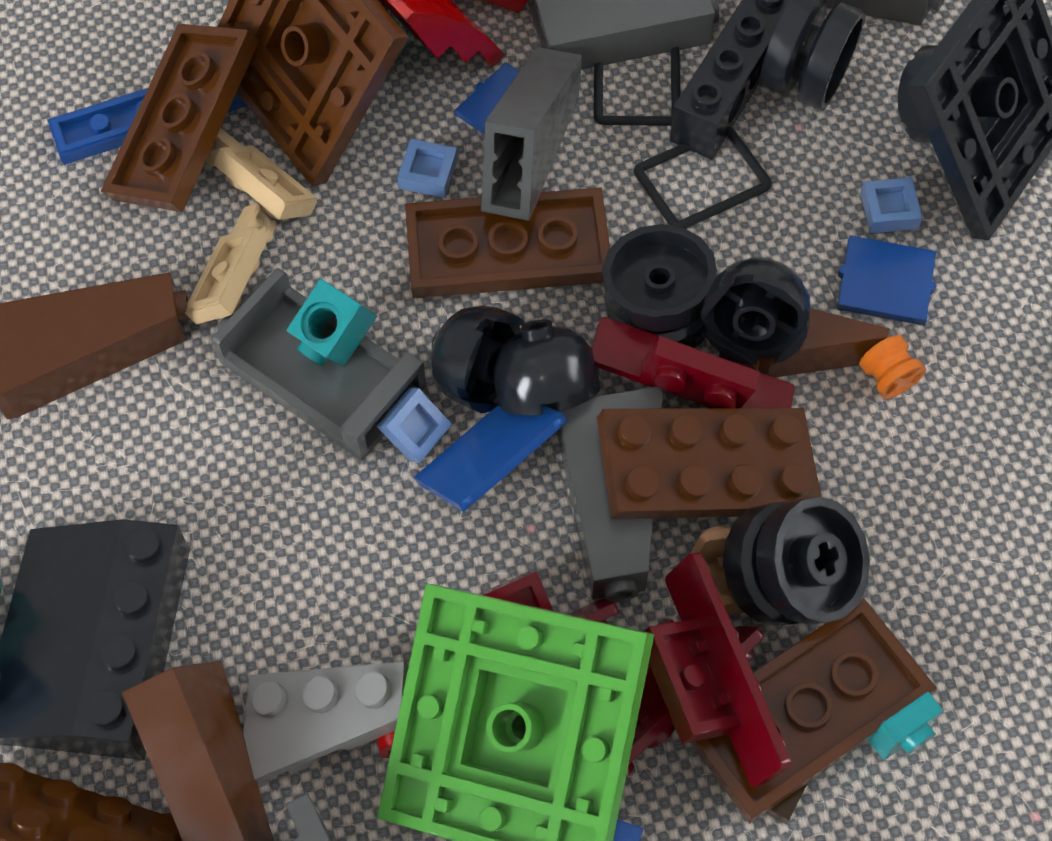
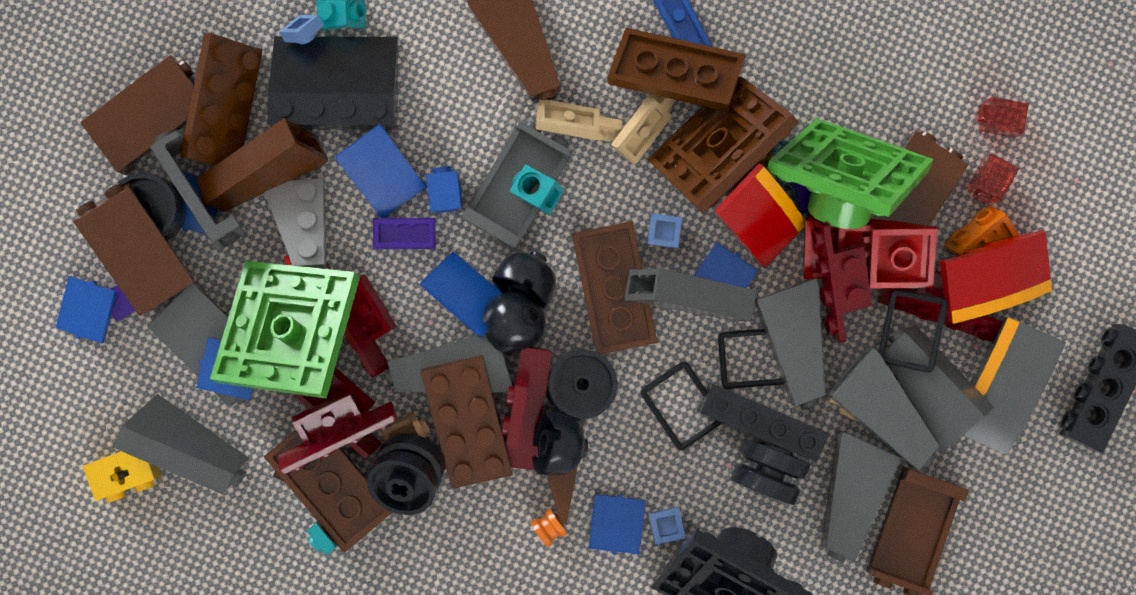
camera: 80 degrees right, 25 degrees up
(254, 566) = (380, 171): none -> blue piece
(308, 472) = (444, 190): none -> blue brick
(371, 547) = (404, 233): none -> dark purple plate
(414, 425) = (481, 247): medium blue plate -> none

